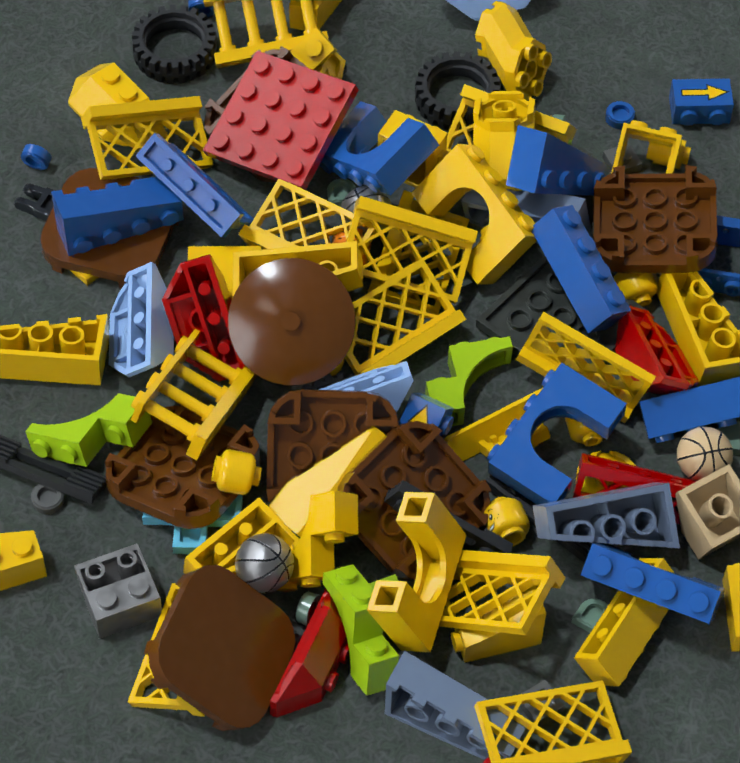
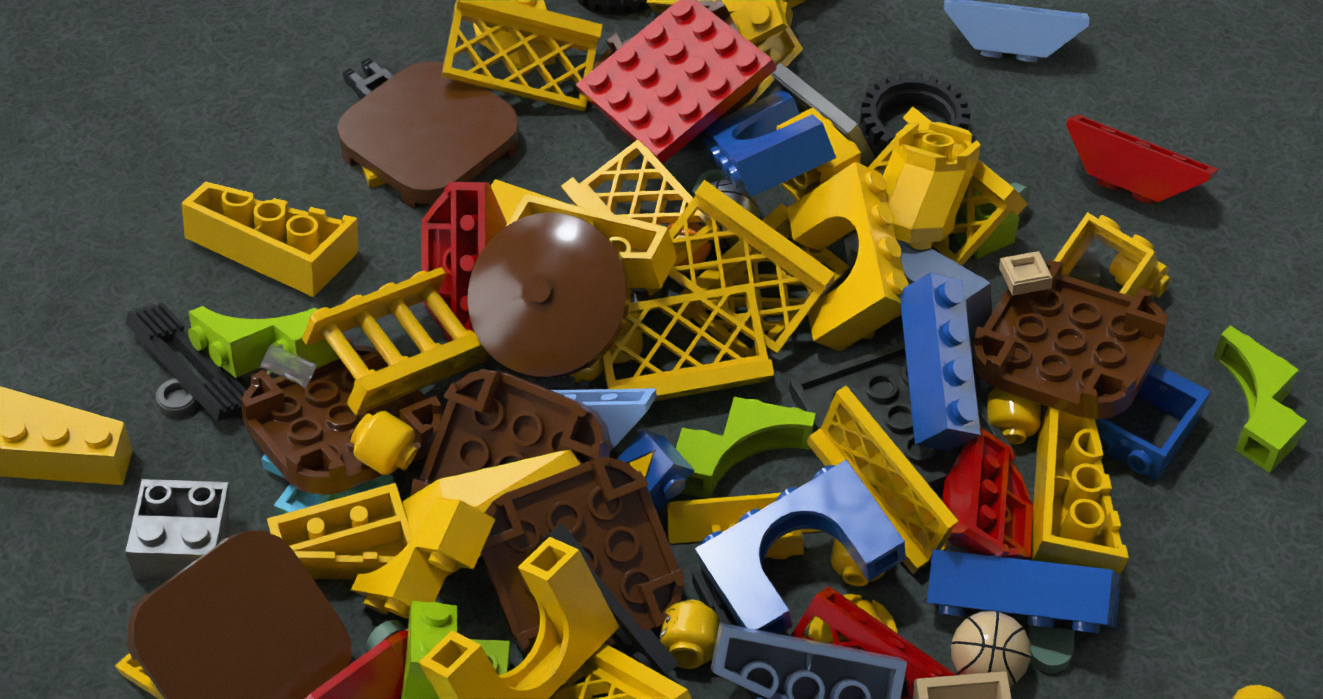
camera: 25 degrees right, 5 degrees down
(36, 157) = (394, 34): blue tile -> none
(113, 213) = (429, 111): blue wedge -> none
(126, 443) = (287, 365): none -> clear pin
(139, 324) = (393, 244): light blue wedge -> none
(193, 186) = (534, 113): fence -> none
(264, 562) = (347, 560): flat silver piece -> none
(388, 104) = (807, 97): none -> light grey tile
(512, 50) = (1001, 96): yellow brick -> none
(551, 166) = (959, 225): blue wedge -> none
(605, 183) = (1025, 273): none -> tan tile
(619, 113) = (1105, 206): blue tile -> none
(628, 70) = (1133, 163): none -> red wedge
(701, 101) = (1213, 230): blue brick -> none

